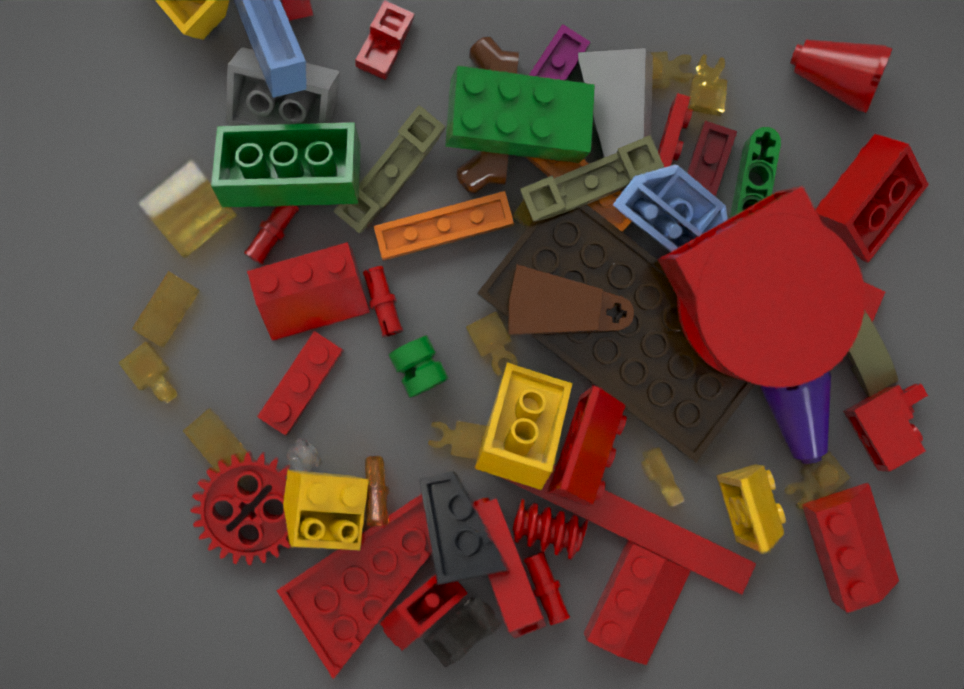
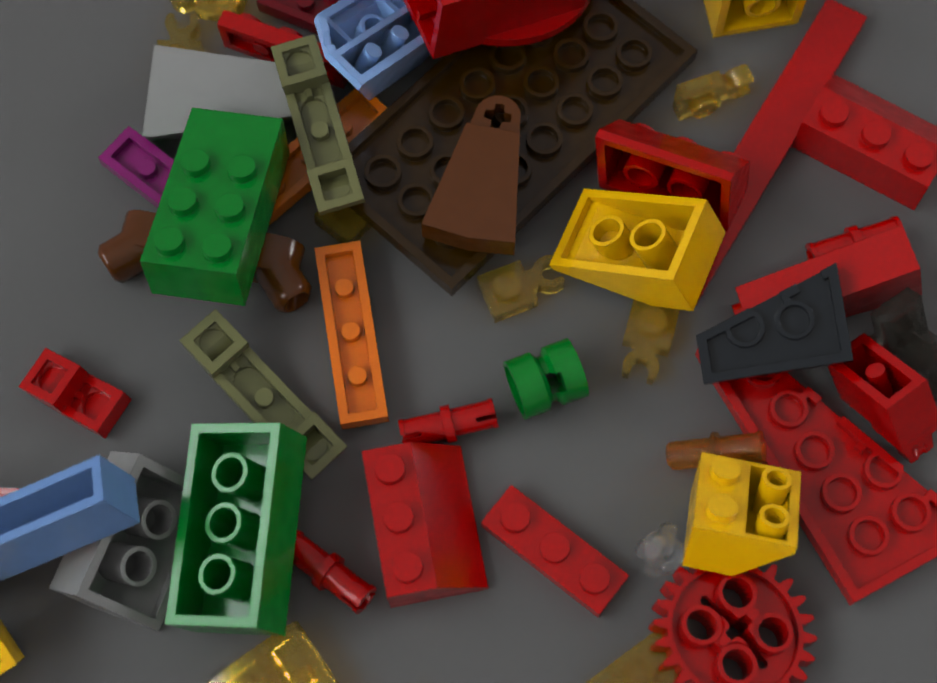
camera: 80 degrees left, 15 degrees down
(549, 530) = (777, 229): red piece -> none

